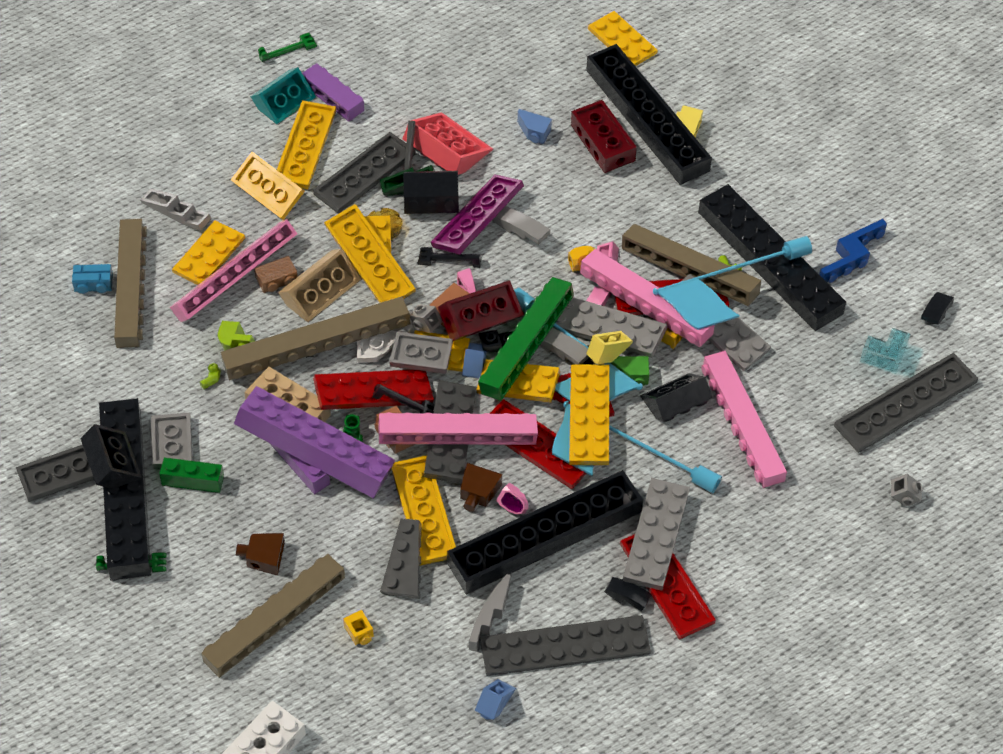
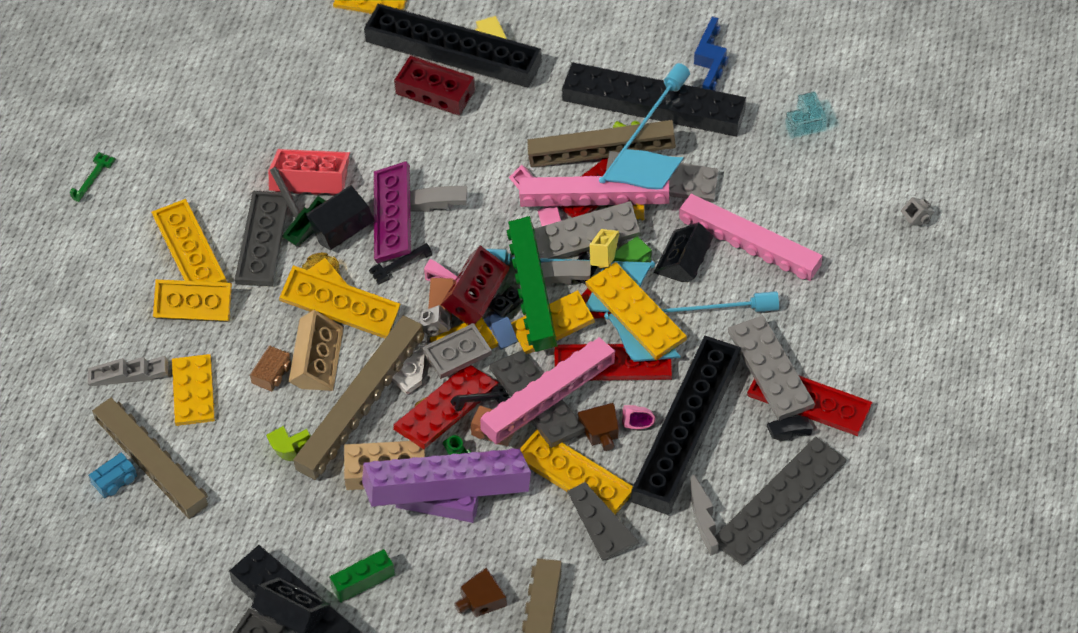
camera: 35 degrees left, 0 degrees up
(171, 437) = (313, 560): light grey plate -> none
(213, 376) = (298, 487): lime arm -> none
(233, 271) = (233, 389): bright pink brick -> none
(283, 95) = (129, 217): teal slope -> none
(334, 92) = (170, 188): medium lavender brick -> none
(358, 622) = (610, 596): yellow brick -> none
(494, 699) = (769, 577): medium blue slope -> none
(534, 126) = (368, 112): medium blue slope -> none
(576, 255) = (508, 194): yellow rock -> none
(905, 402) = (853, 147): dark grey plate -> none
(936, 308) = (811, 60): black slope -> none

